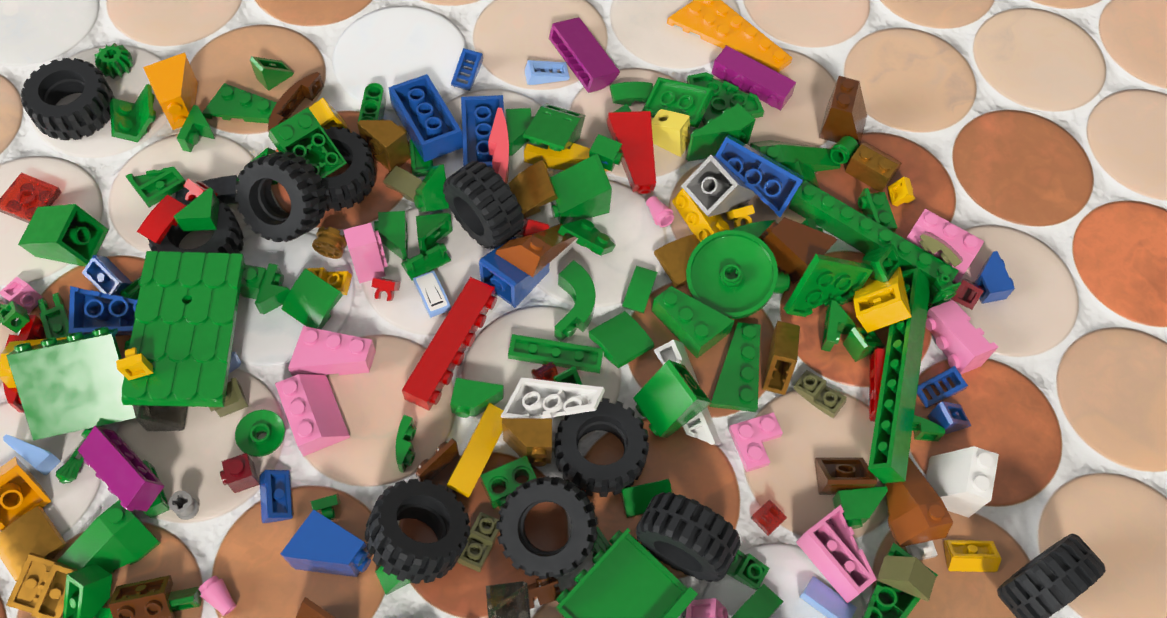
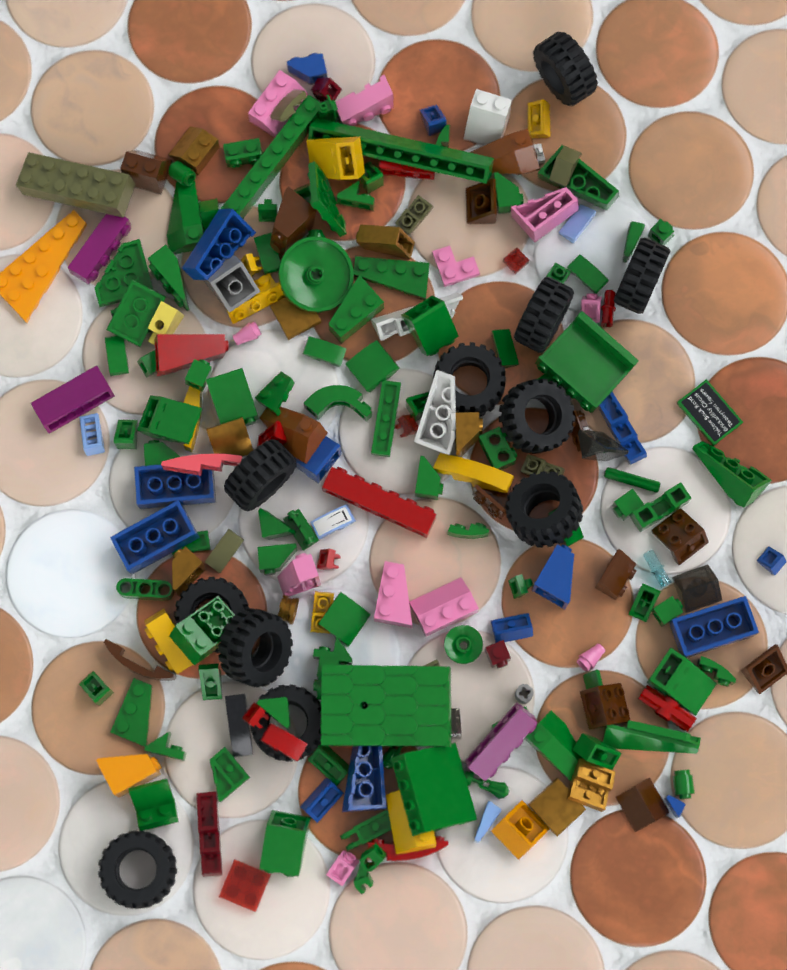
camera: 85 degrees left, 15 degrees up
(93, 168) = (209, 834): none -> dark red slope
(113, 60) = (83, 849): green gear -> none
(134, 365) = (426, 734): yellow tile -> none
(430, 192) = (236, 524): green slope -> none
(470, 56) = (73, 509): blue slope -> none
(542, 94) = (126, 434): none -> green slope
(818, 52) = (75, 184): none -> olive brick
(883, 262) = (302, 153): green slope -> none
(901, 192) = (223, 130): yellow tile -> none
(956, 378) = (394, 113): blue slope -> none

